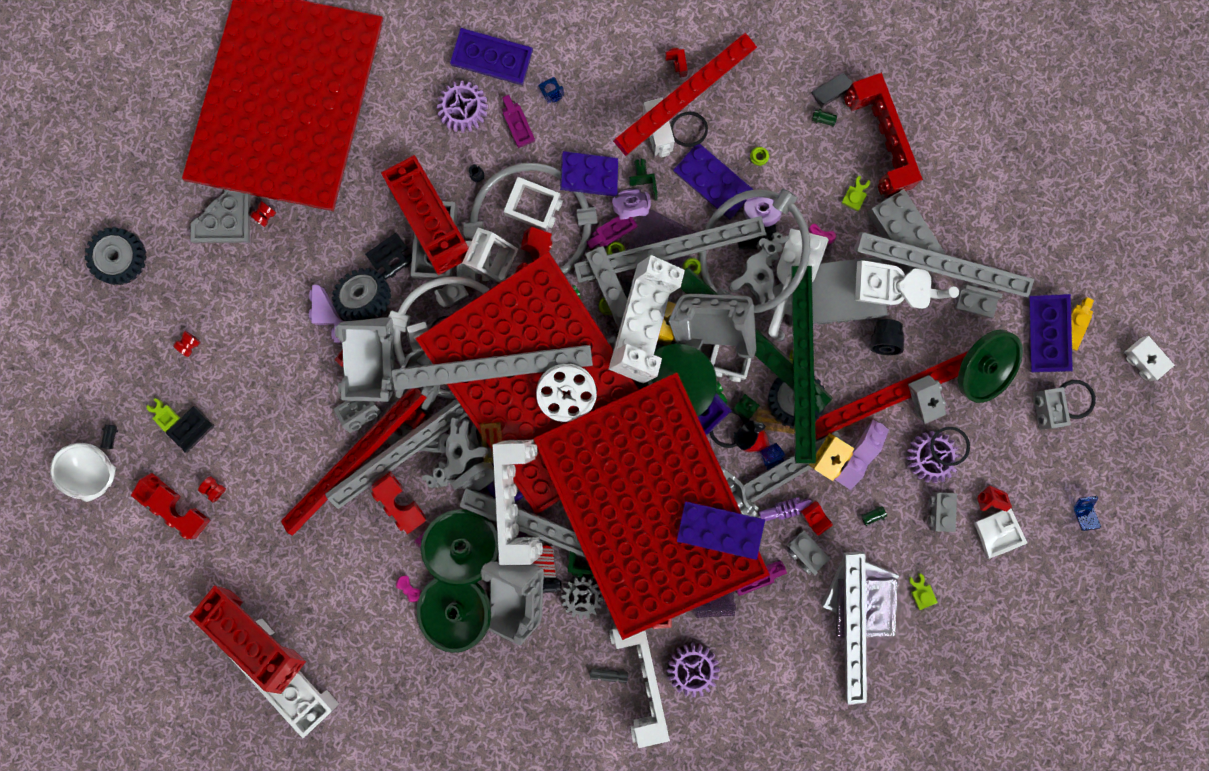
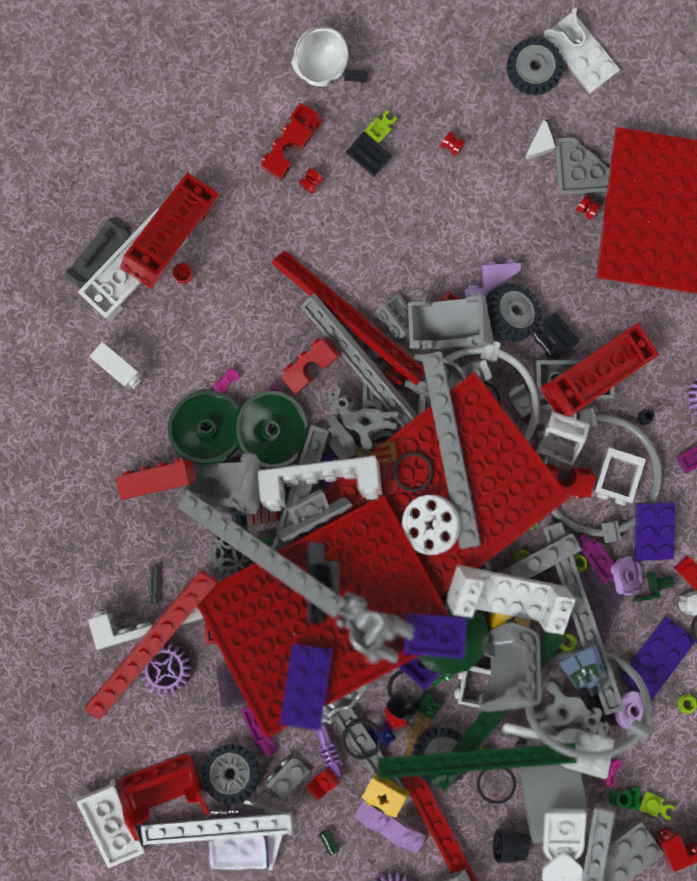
camera: 80 degrees right, 0 degrees up
(106, 208) = (581, 52): none -> white plate
(194, 254) = (542, 143): none -> white slope
(265, 713) = (97, 253): none -> dark grey piece
(295, 627) = (180, 271): none -> red wheel
(384, 702) = (116, 366): none -> white window
(502, 668) = (157, 479): none -> red brick
(512, 424) = (430, 475): none -> black piece
(546, 514) = (310, 512): none -> light grey bracket
(584, 565) = (262, 554): none -> light grey plate
(616, 507) = (325, 573): none -> black bracket
(666, 461) = (371, 628): none -> light grey animal
(667, 684) = (150, 644): none -> red plate
(678, 396) = (436, 636): none -> dark purple plate
(720, 251) = (585, 669): none -> sand blue torso
(779, 493) = (345, 745): none -> black piece
(798, 625) = (215, 770): none -> wheel
(809, 685) = (158, 785): none -> red windscreen
(843, 342) = (496, 802): none -> black piece
(845, 735) = (106, 823): none -> white plate
(847, 219) = (629, 798): none -> green plate

